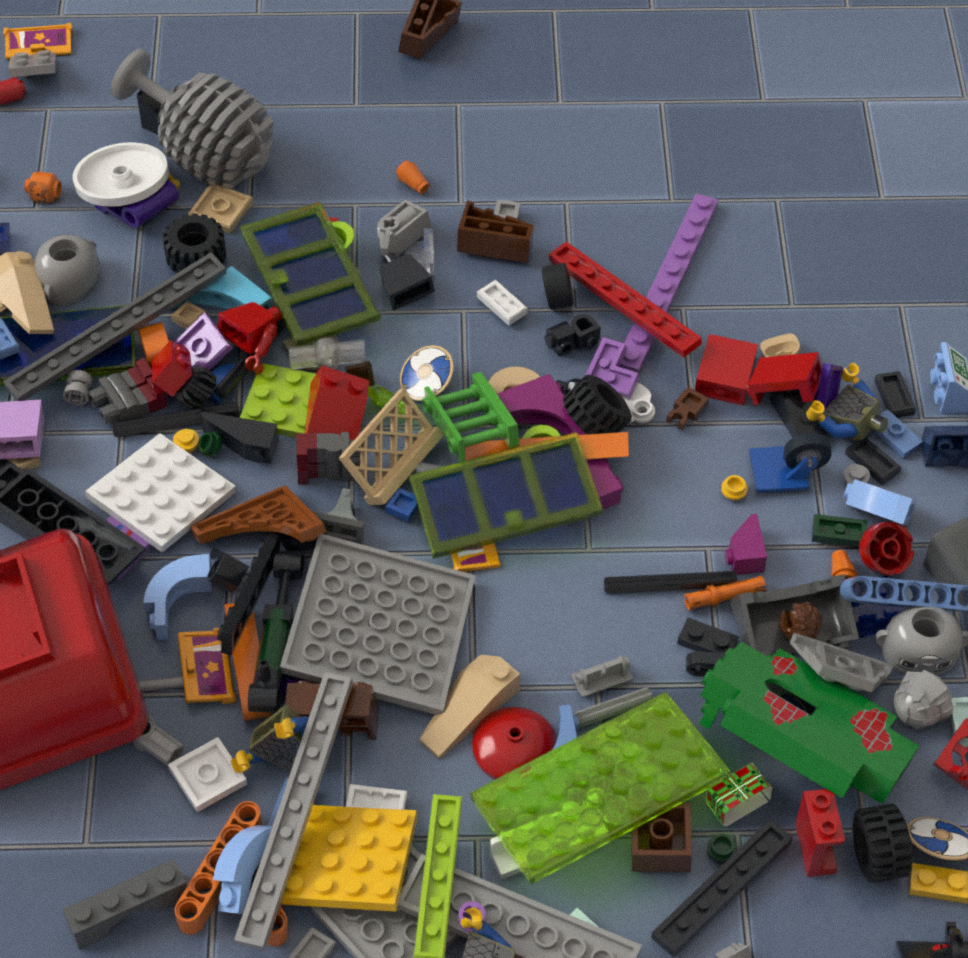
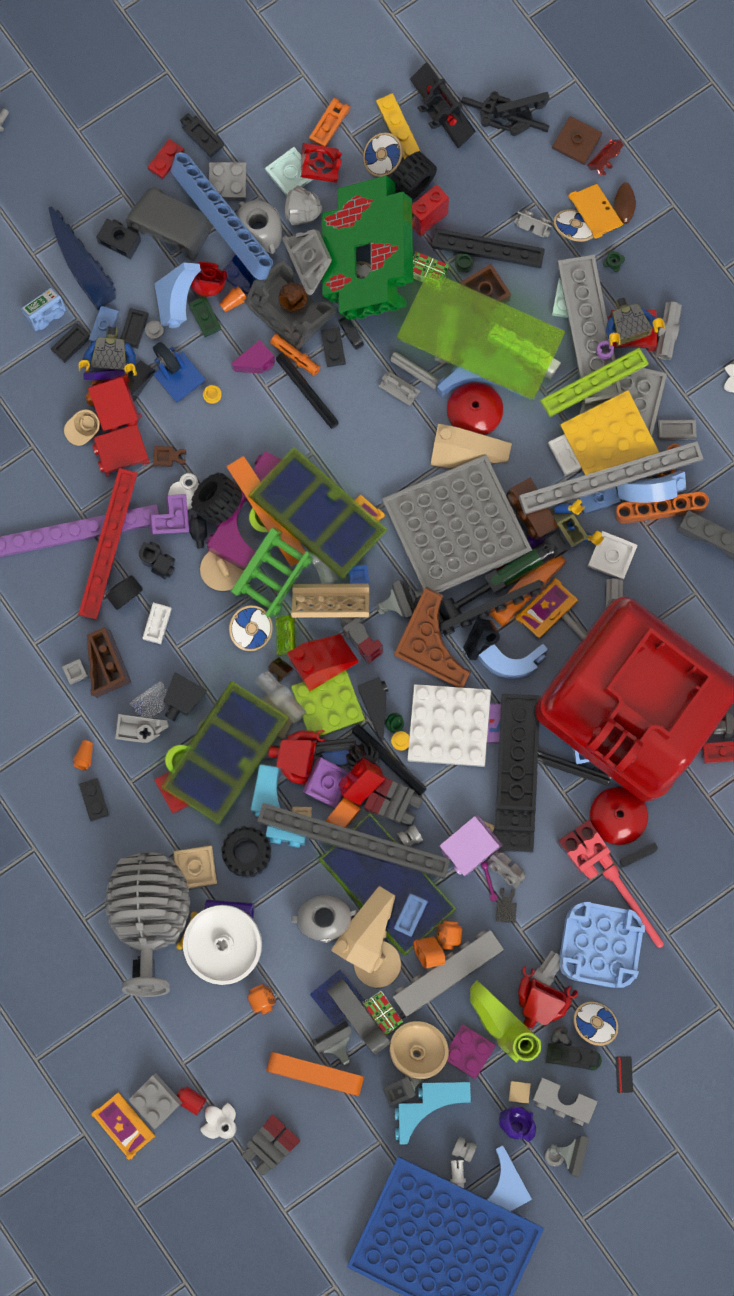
camera: 120 degrees left, 25 degrees up
(362, 167) = (94, 799): none -> black plate

